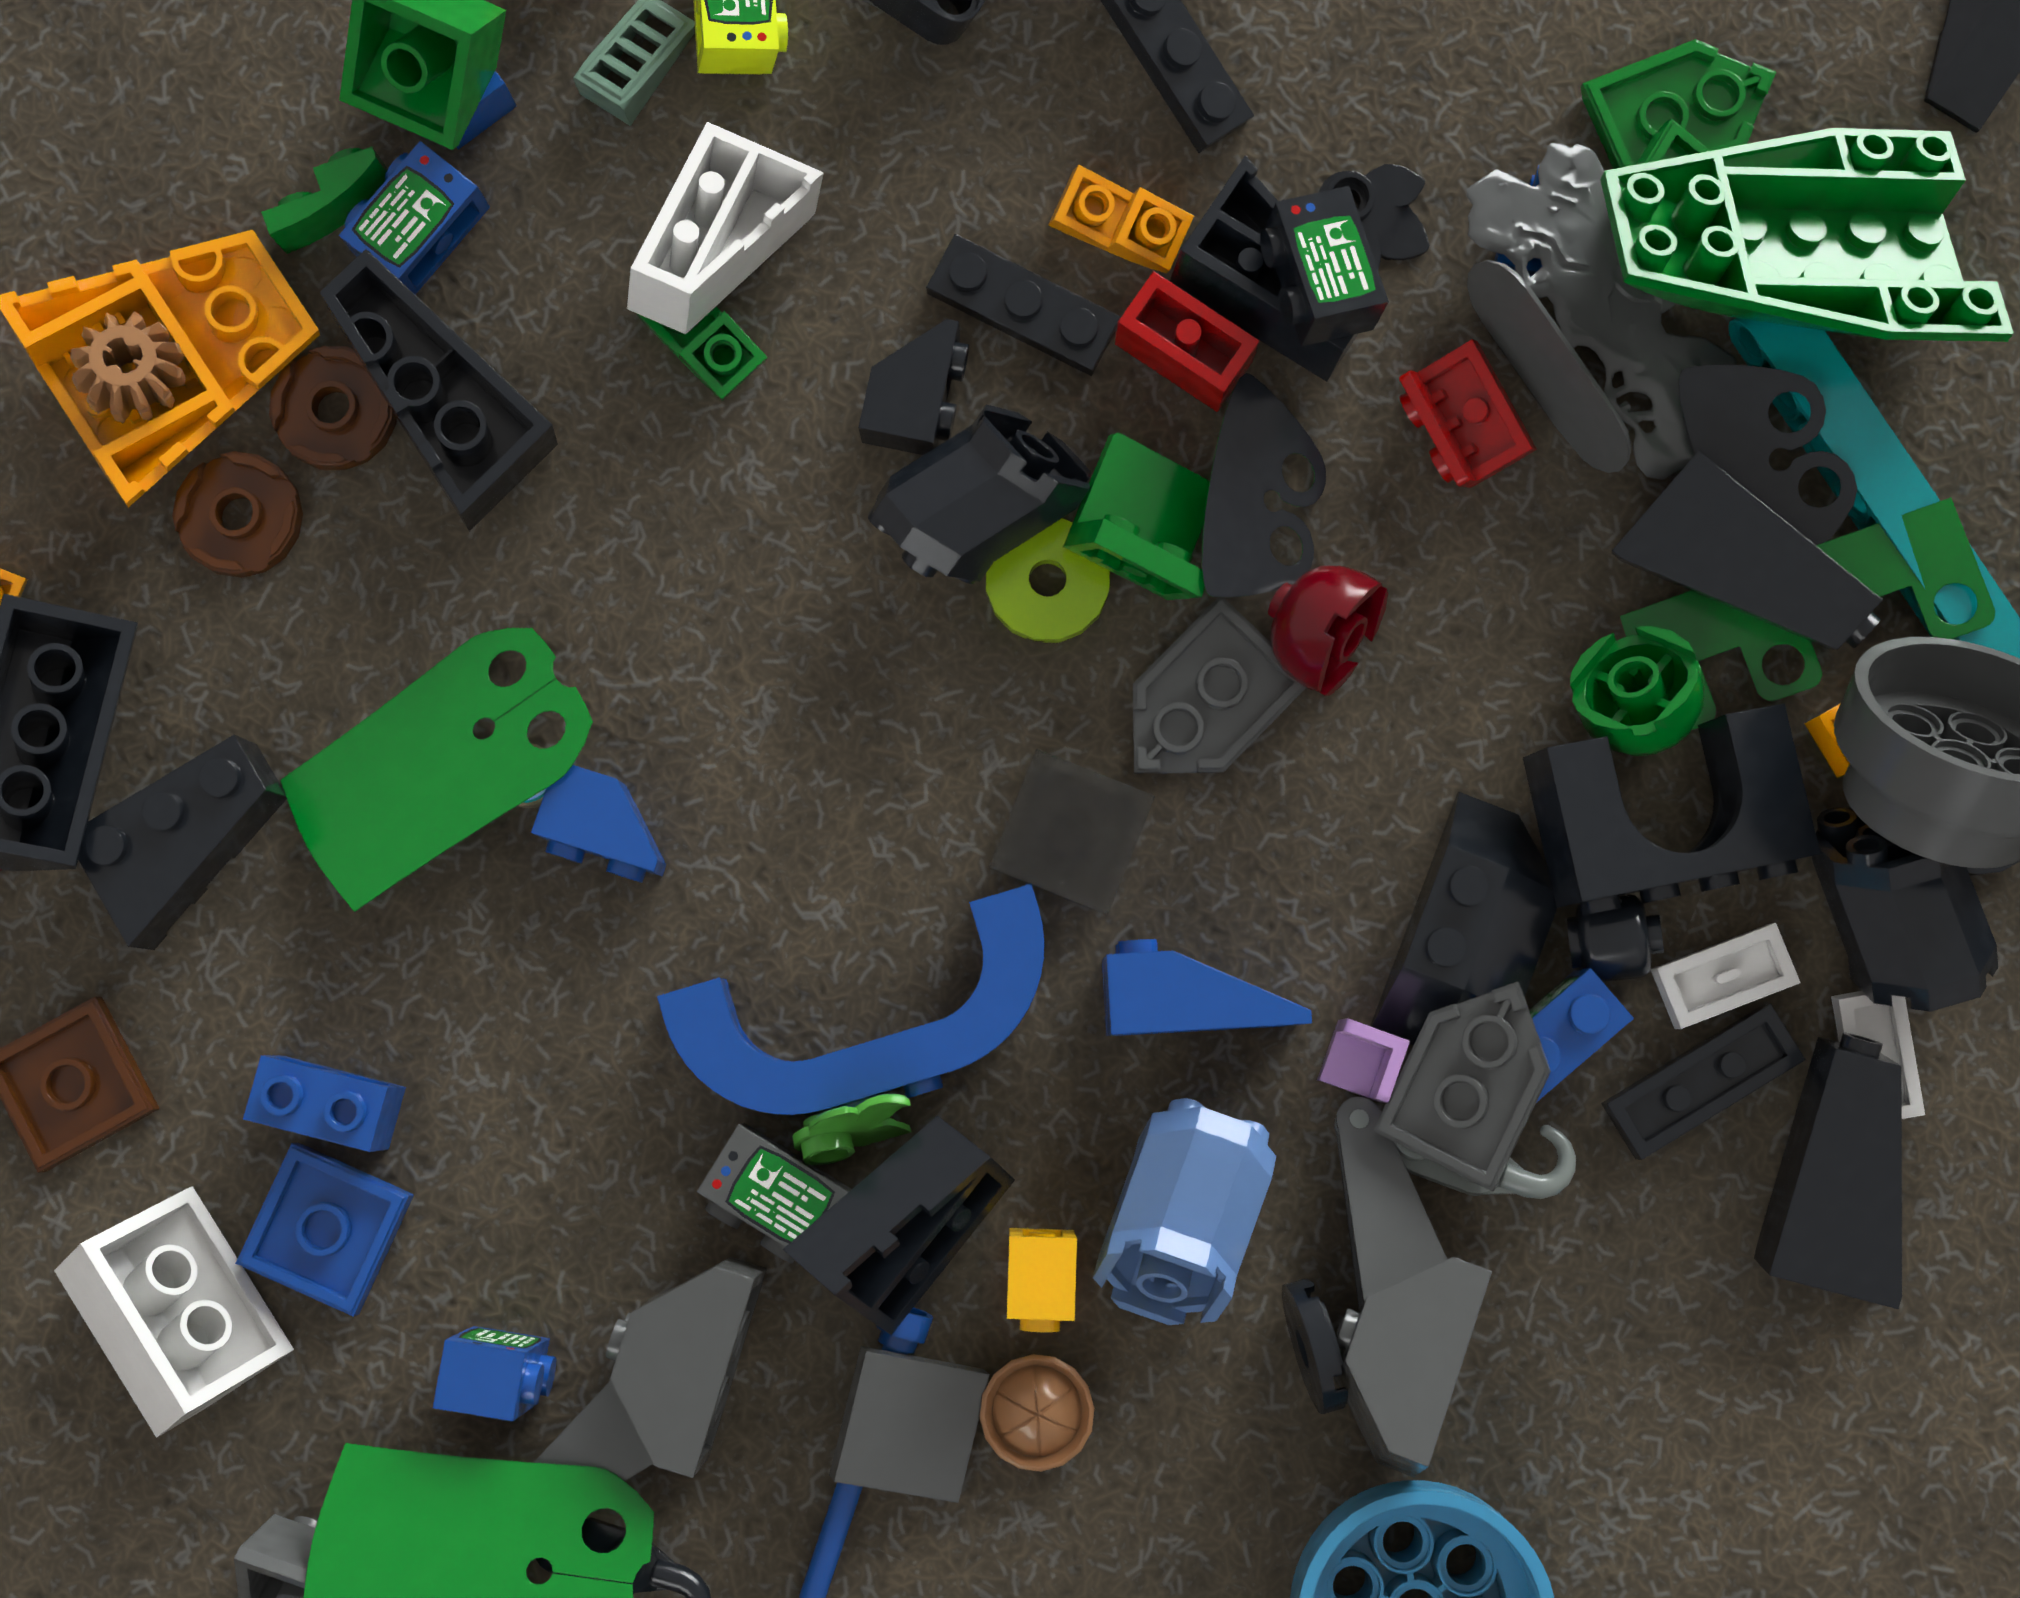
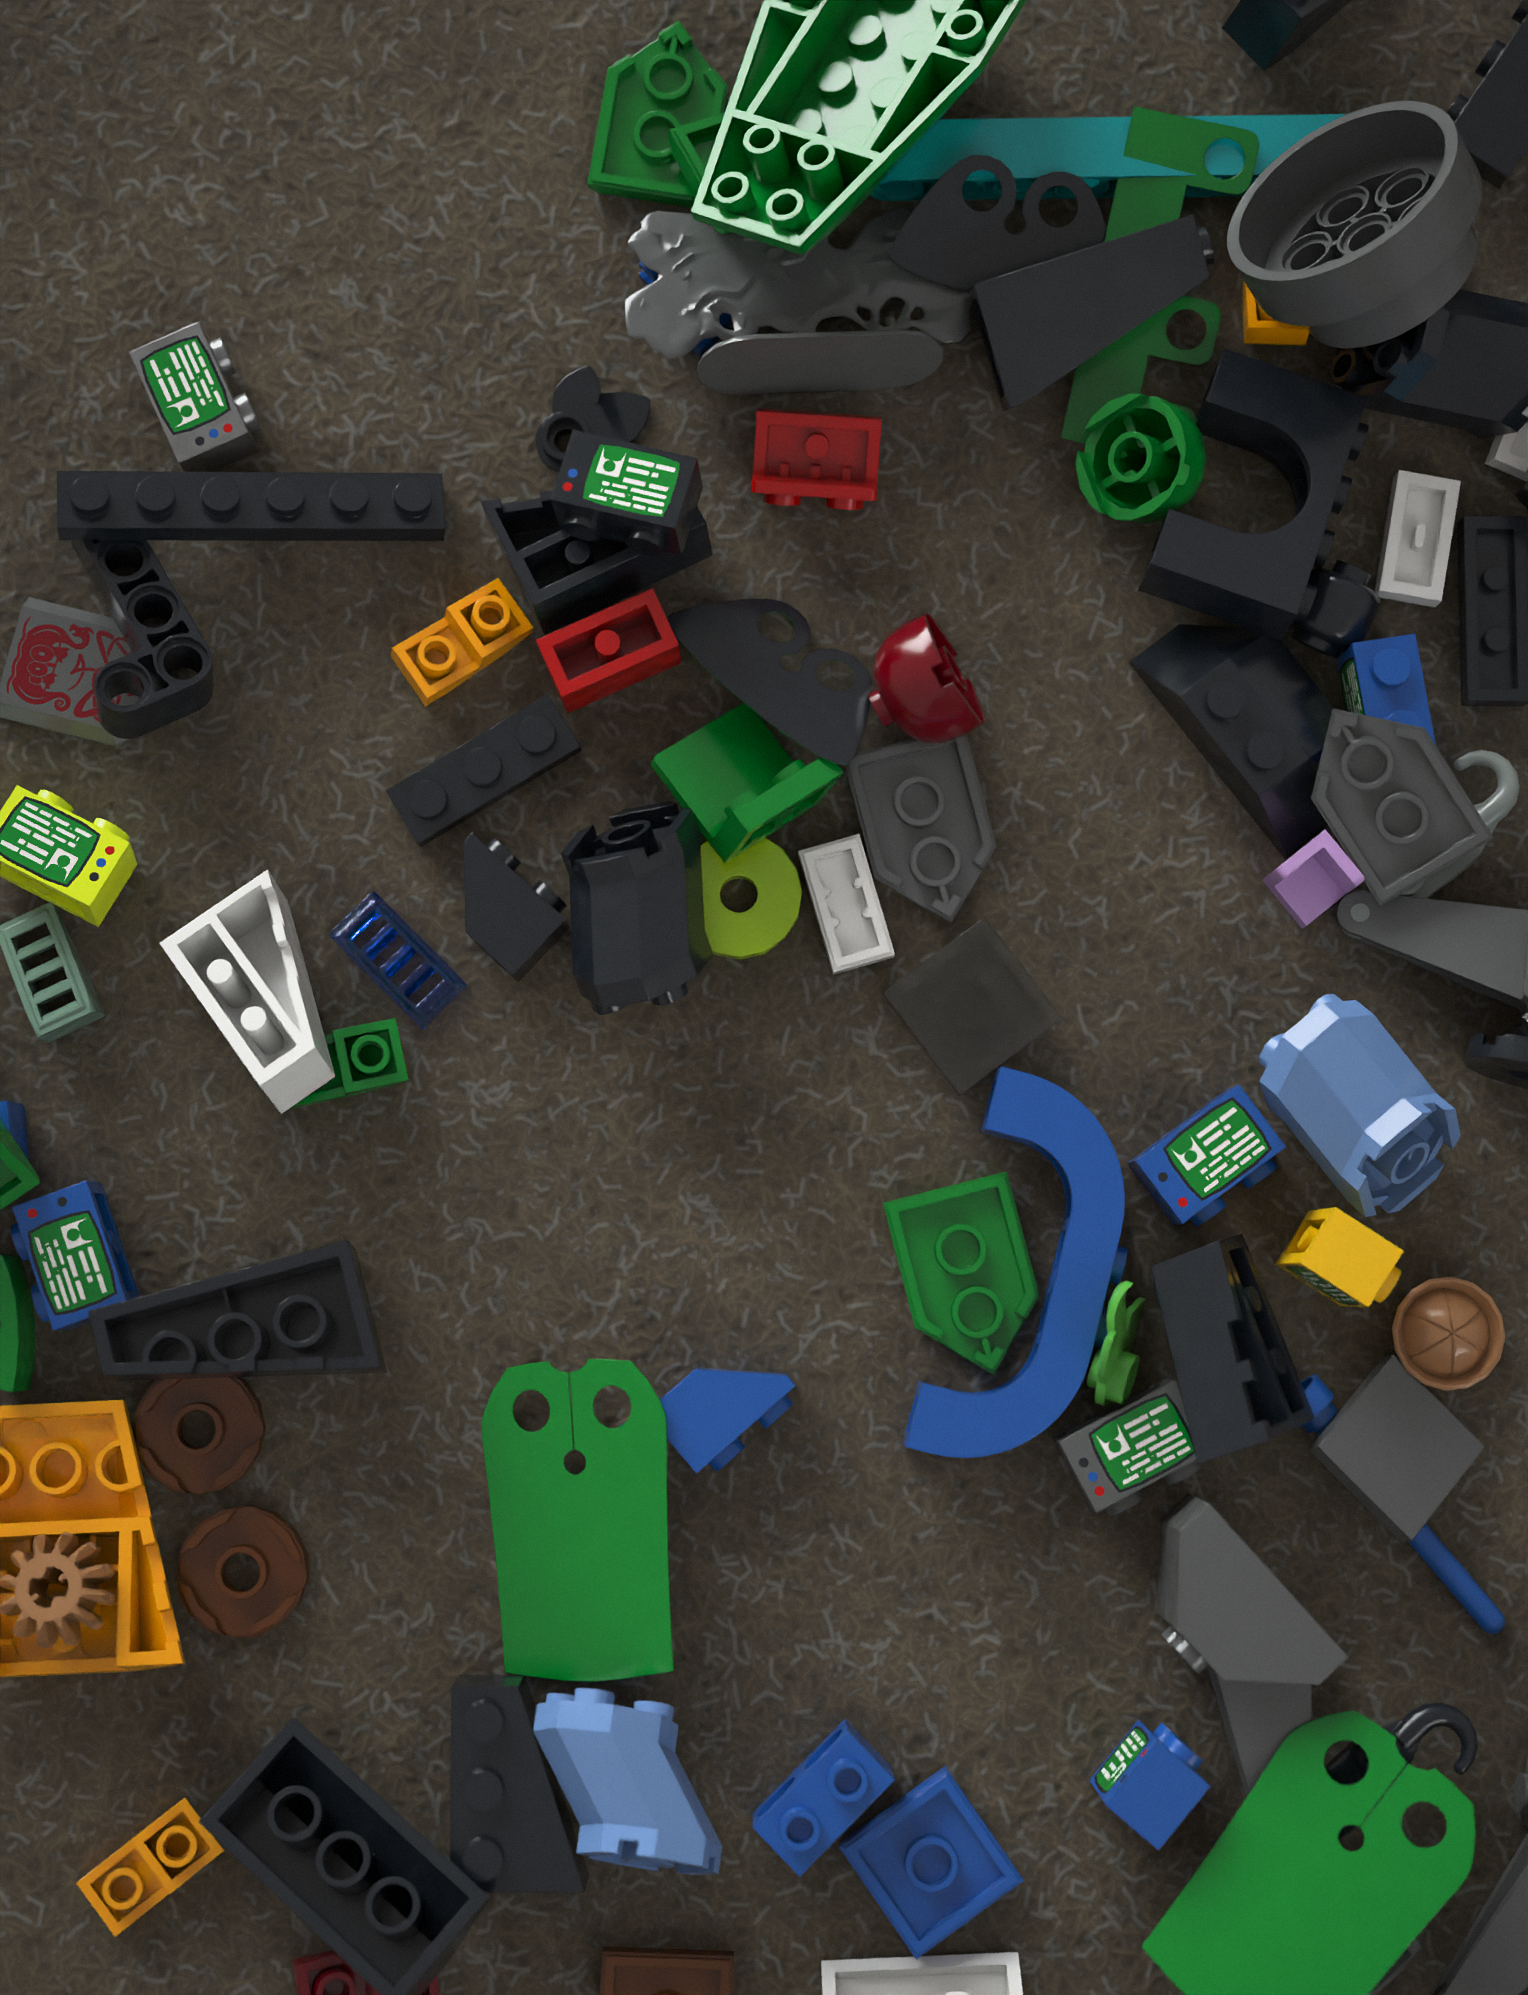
camera: 60 degrees left, 0 degrees up
(239, 928) = (626, 1782): none -> medium blue brick
(831, 278) = (358, 921): none -> clear blue slope
(845, 960) = (965, 1266): none -> green tile
(1063, 1111) = (1207, 1157): none -> brick
(1094, 673) = (846, 904): none -> white plate
(1174, 993) = (1165, 1010): blue slope -> none

